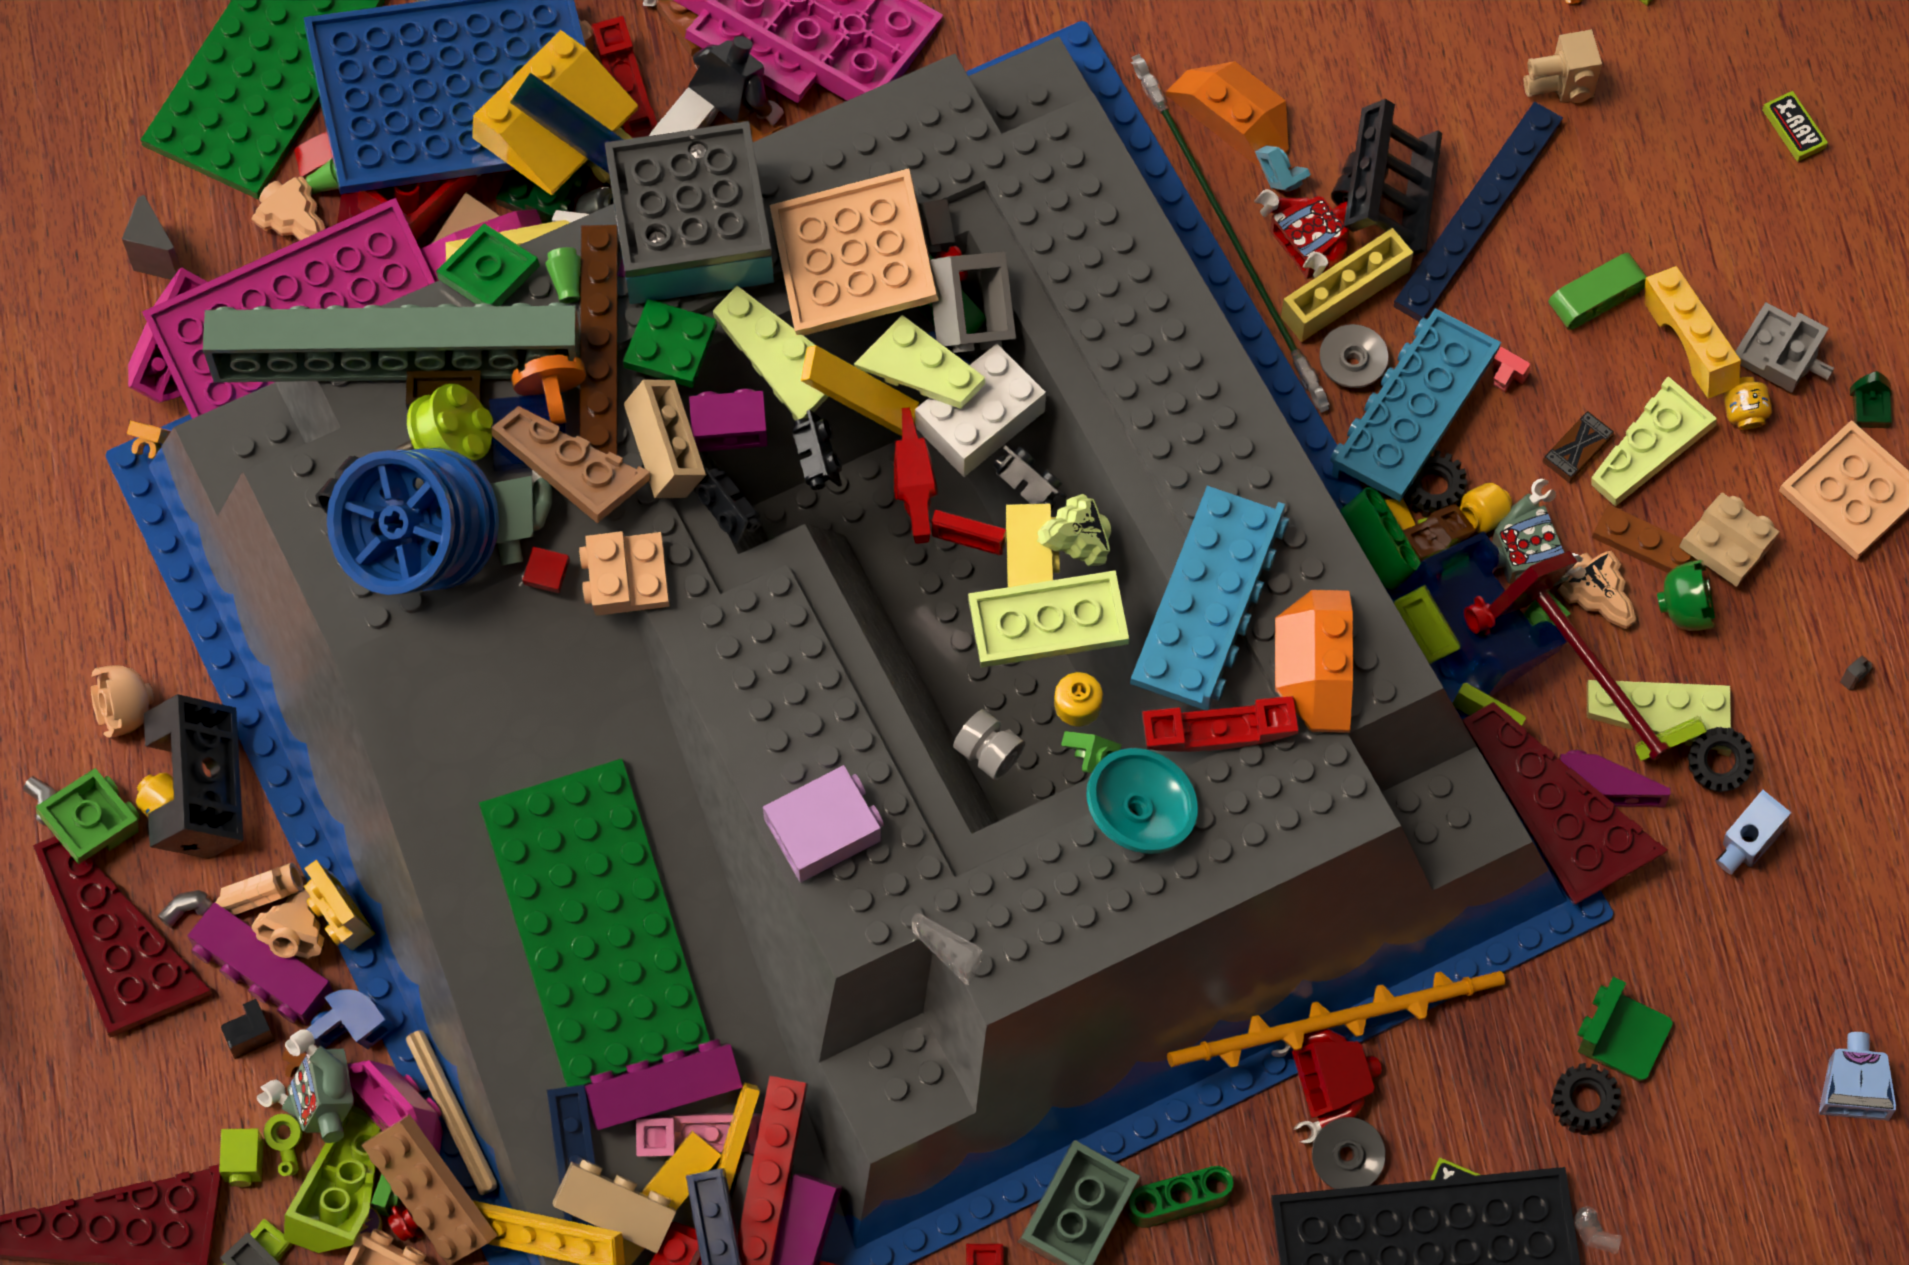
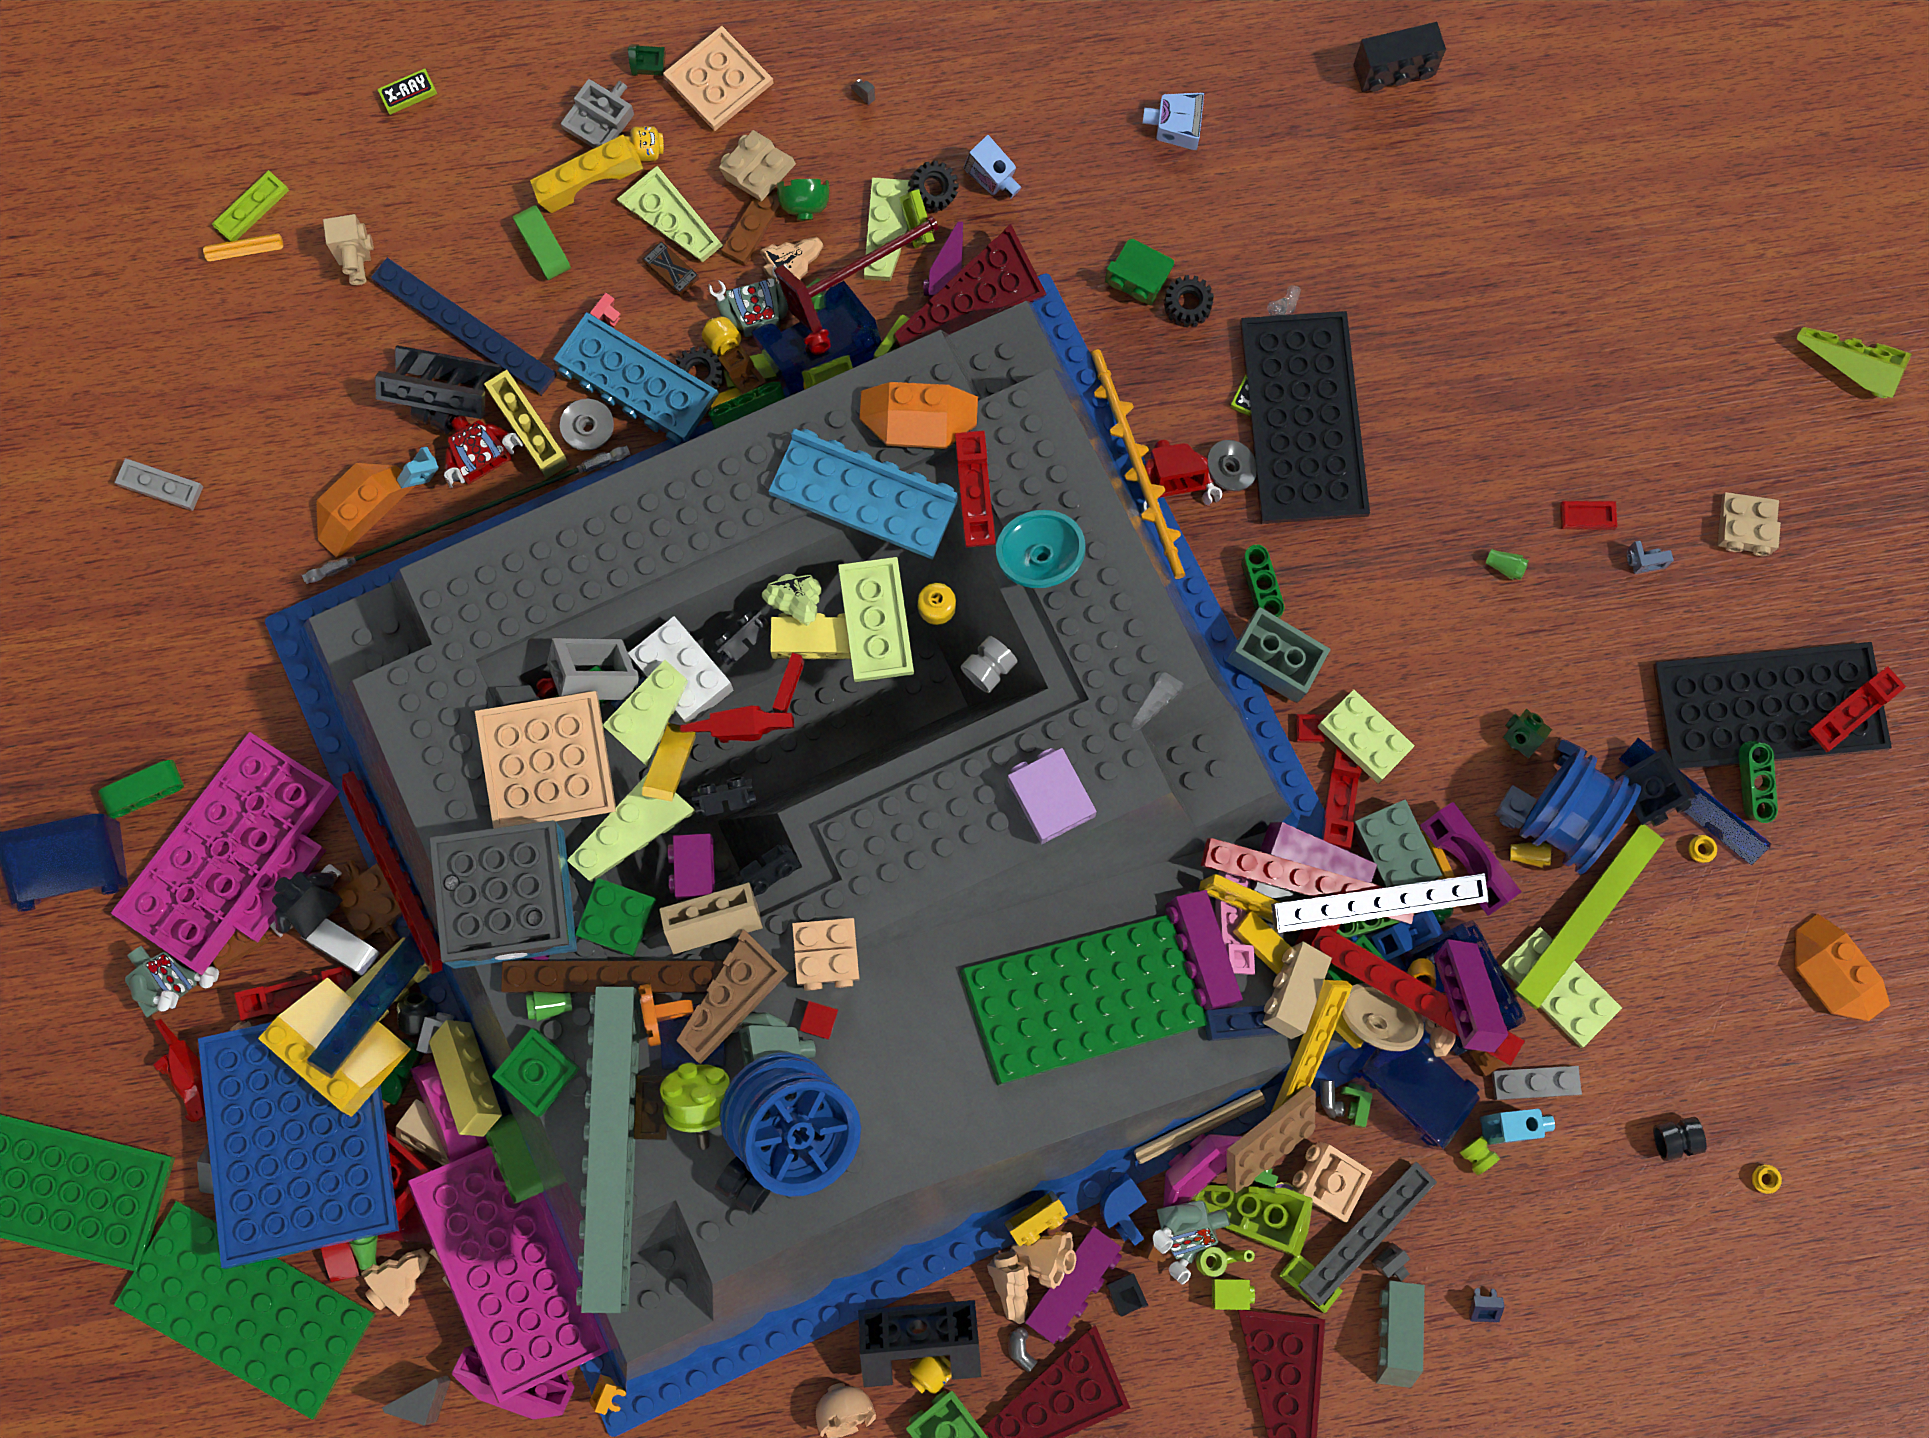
camera: 90 degrees left, 10 degrees up
(403, 1224) = (1286, 1164): red plate -> none
(1089, 748) = (980, 591): bright green bracket -> none

